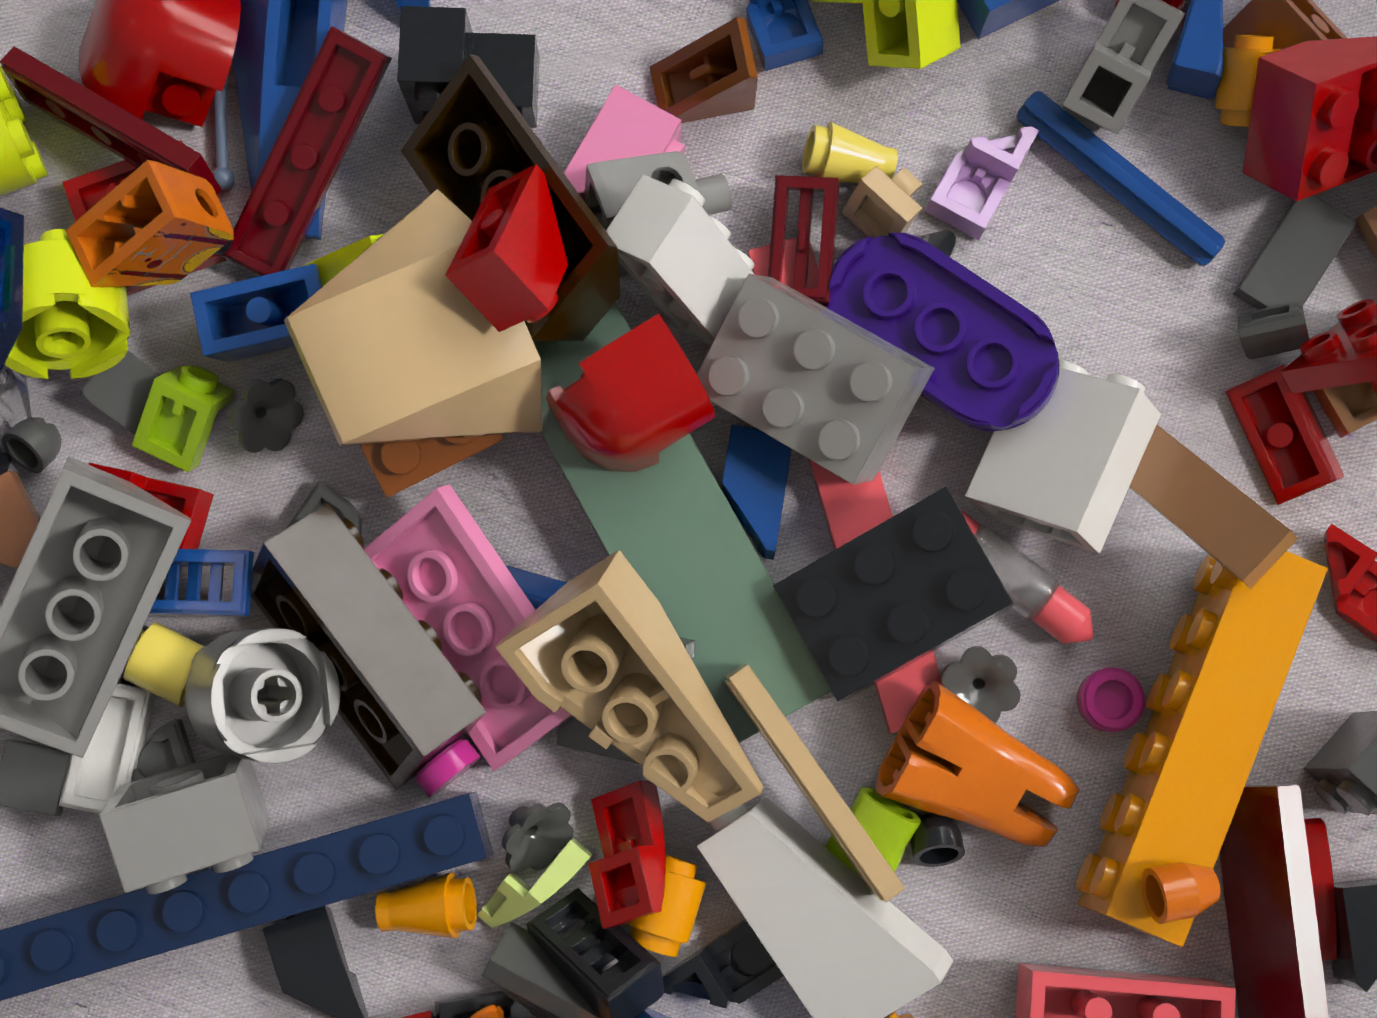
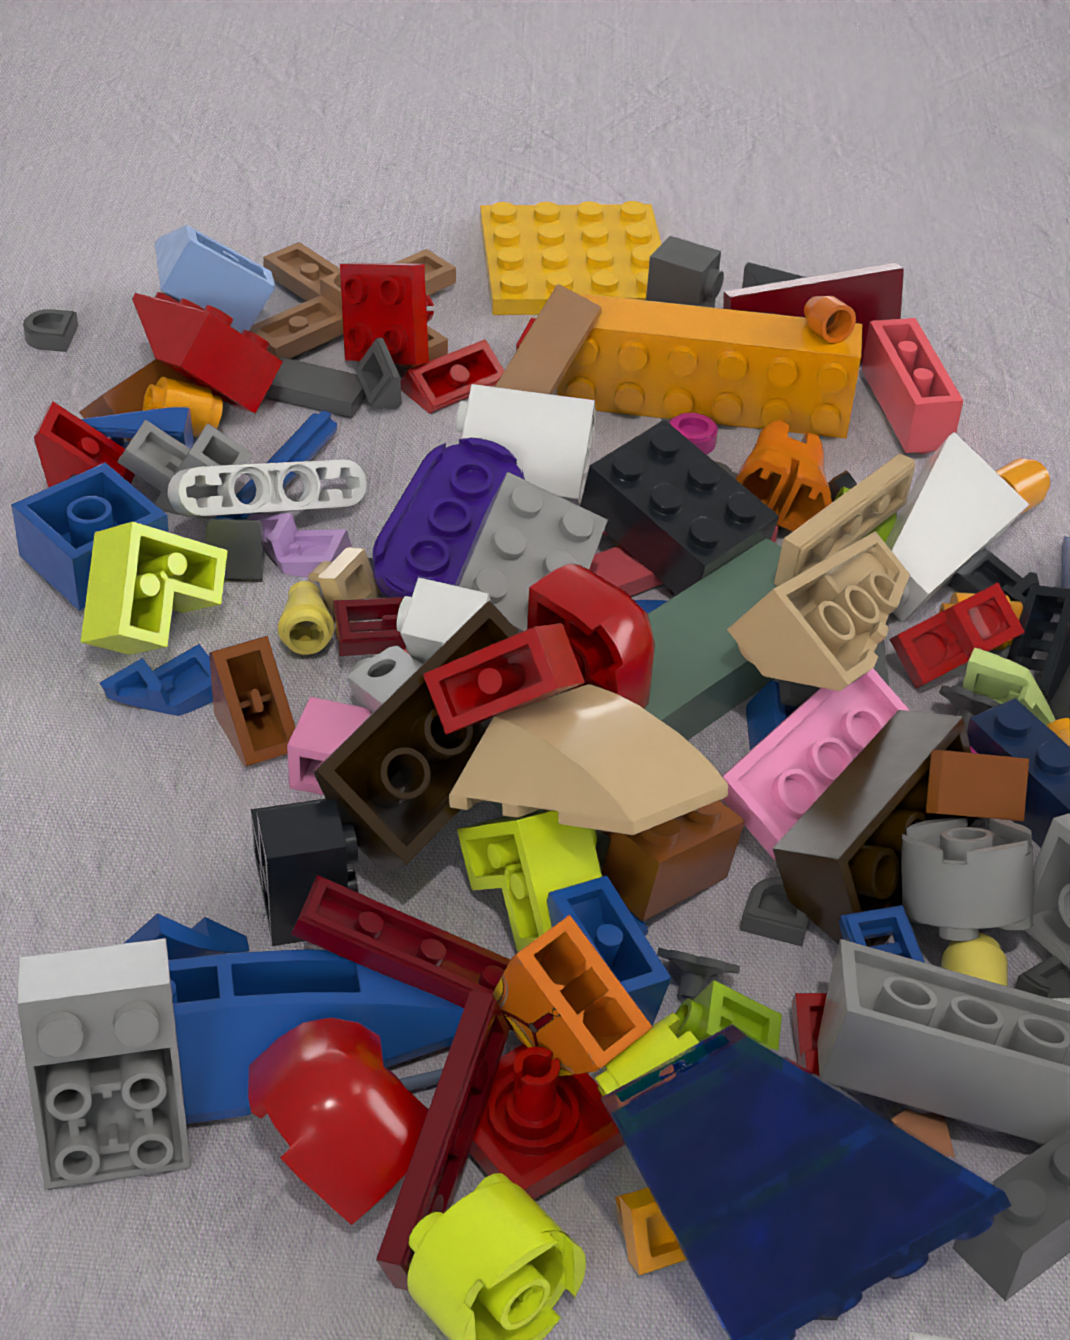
camera: 105 degrees left, 40 degrees down
(360, 753) = (977, 785): none -> dark orange slope
(976, 100) = (244, 544): none -> dark grey slope
(1063, 143) = (269, 487): none -> white beam

